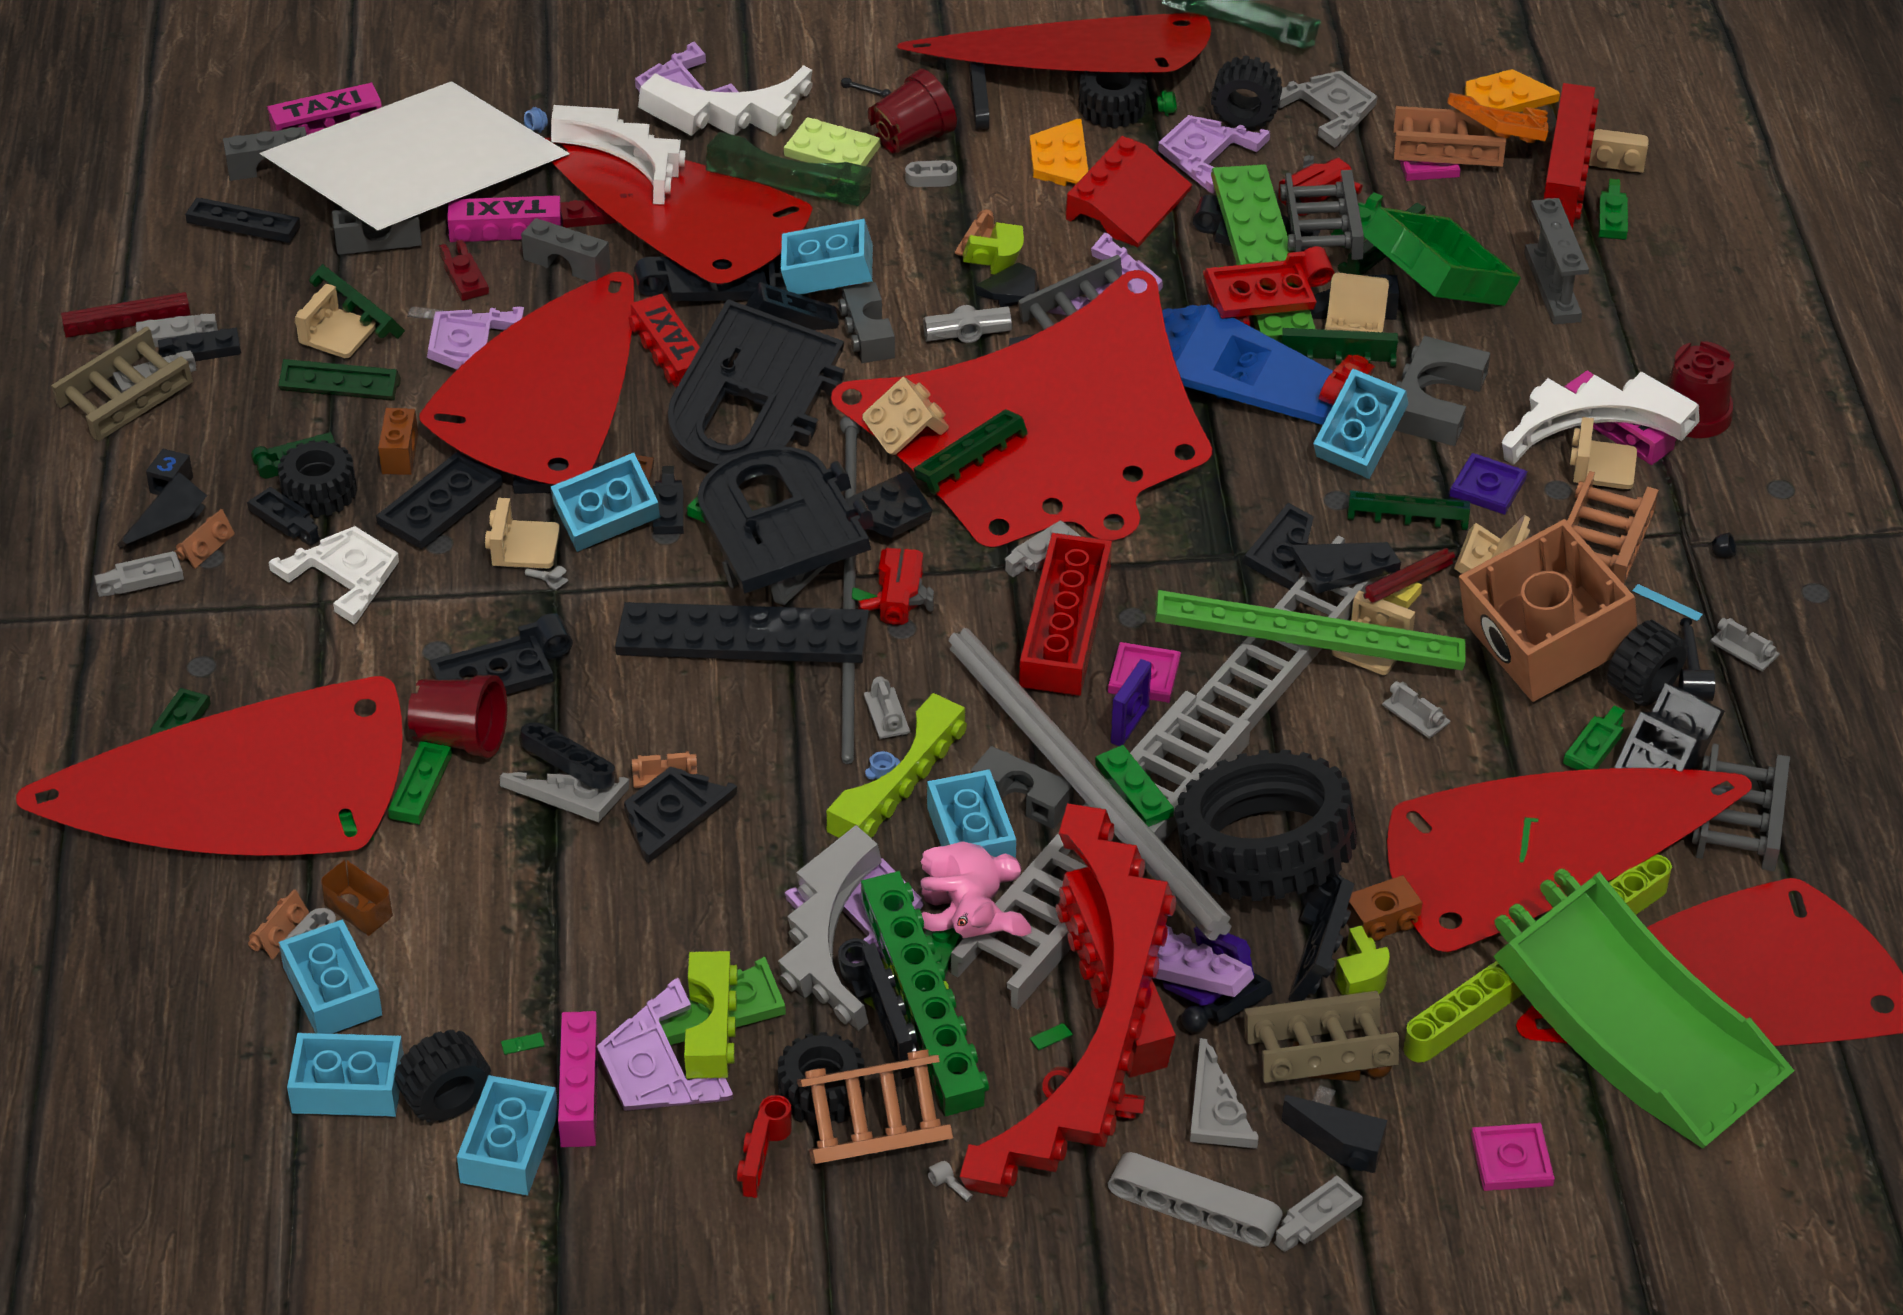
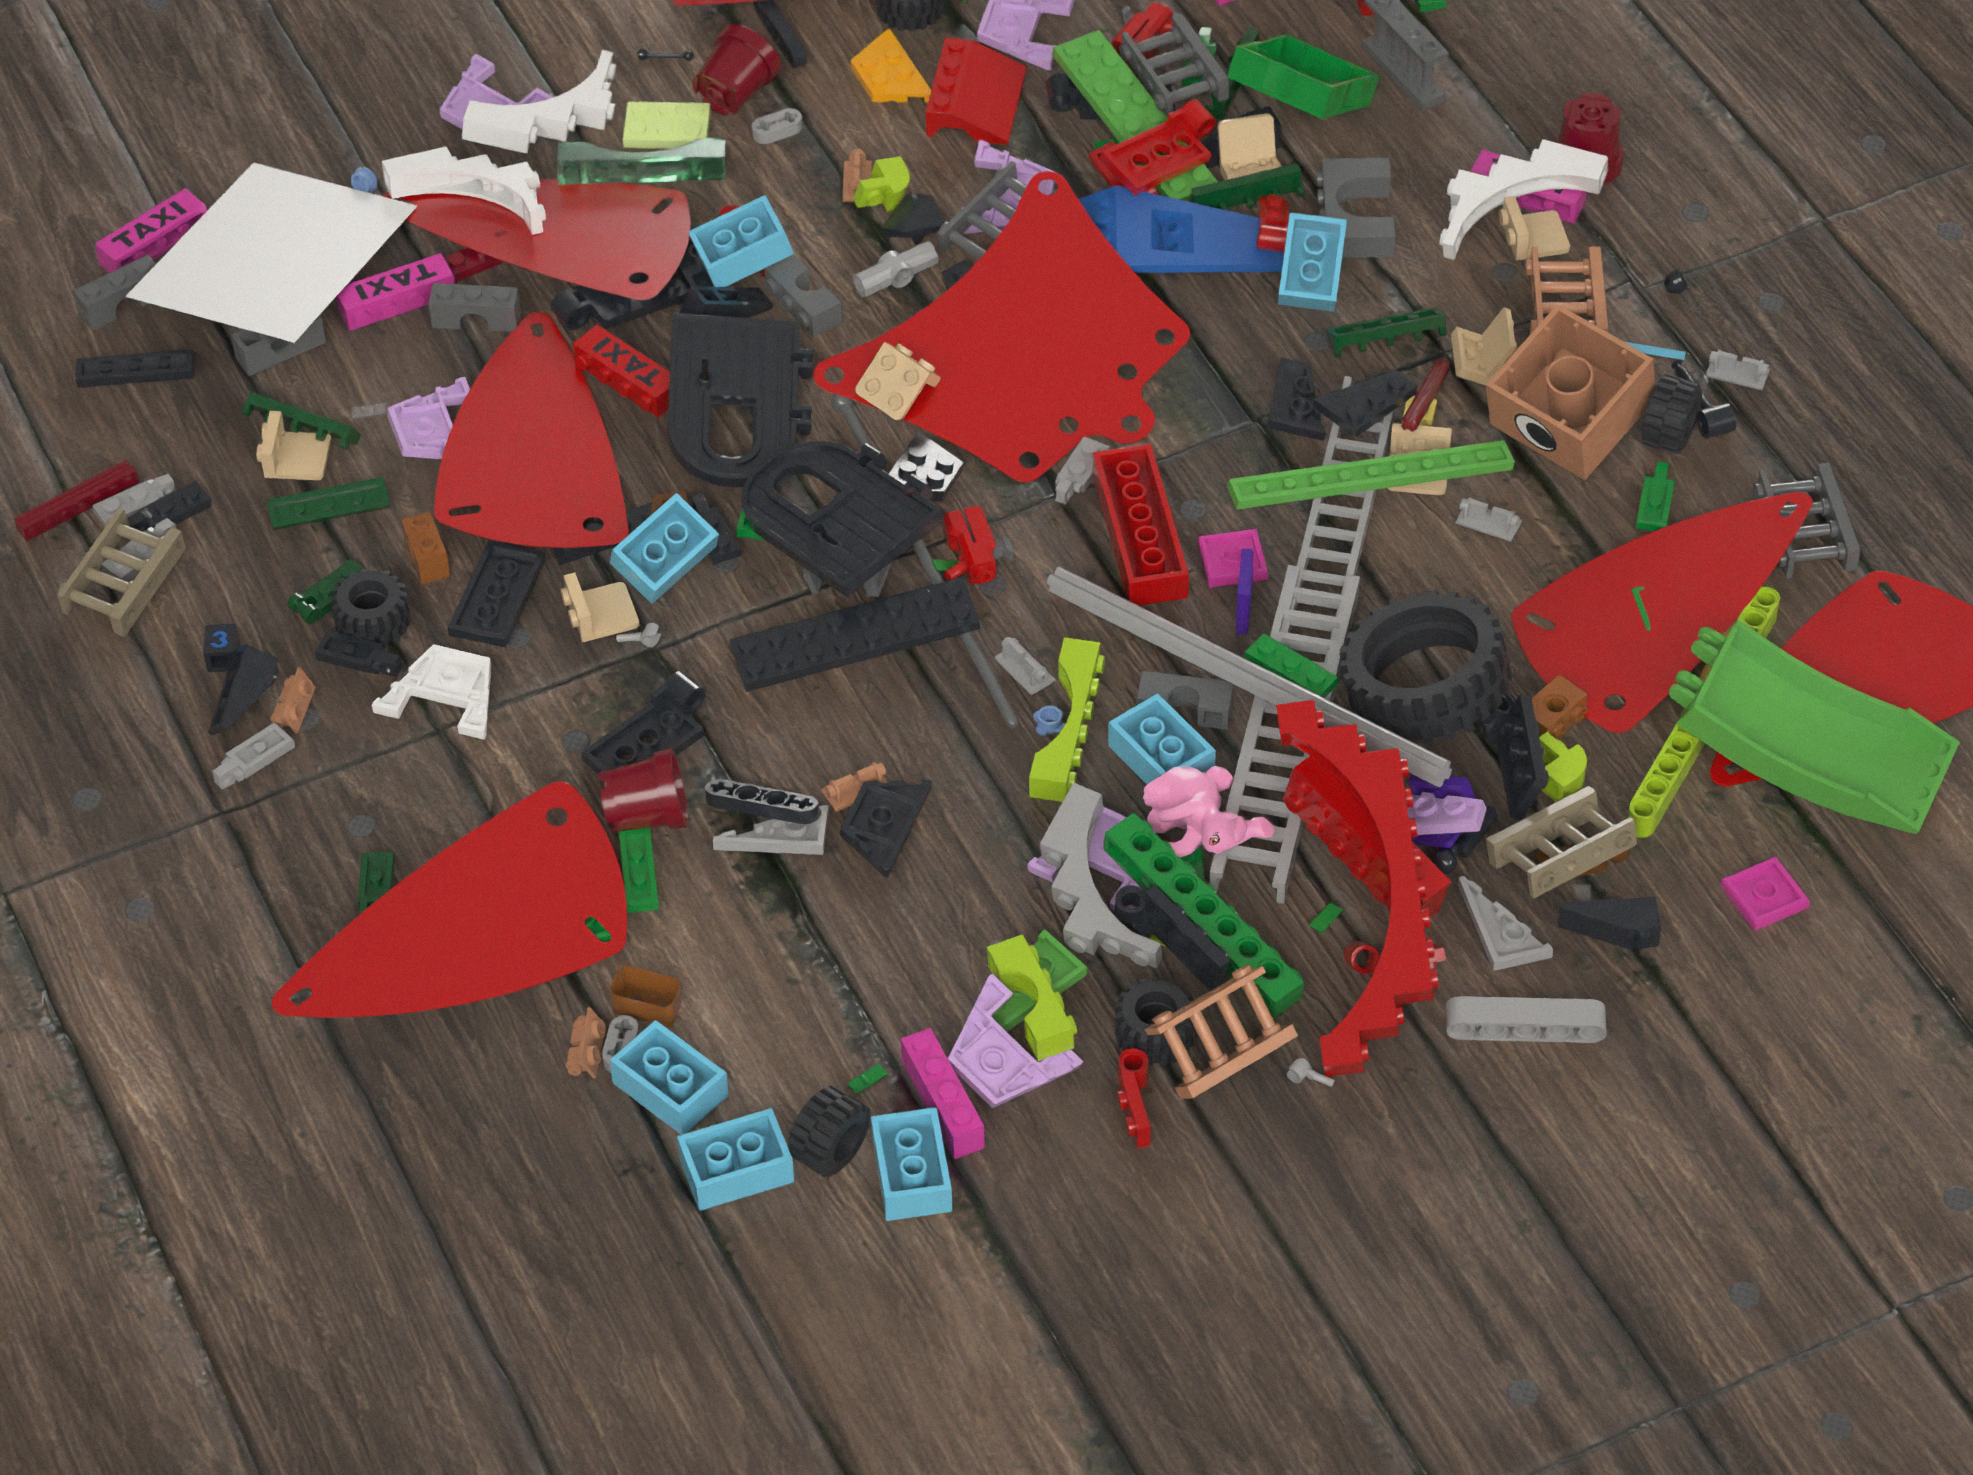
camera: 20 degrees left, 5 degrees up
(463, 272) = (383, 357): dark red hinge -> none
(970, 448) = (971, 393): dark green hinge -> none
(1317, 1213) = (1632, 996): light grey hinge -> none
(1488, 483) = (1442, 284): dark purple tile -> none
(1671, 734) = (1720, 472): bracket -> none

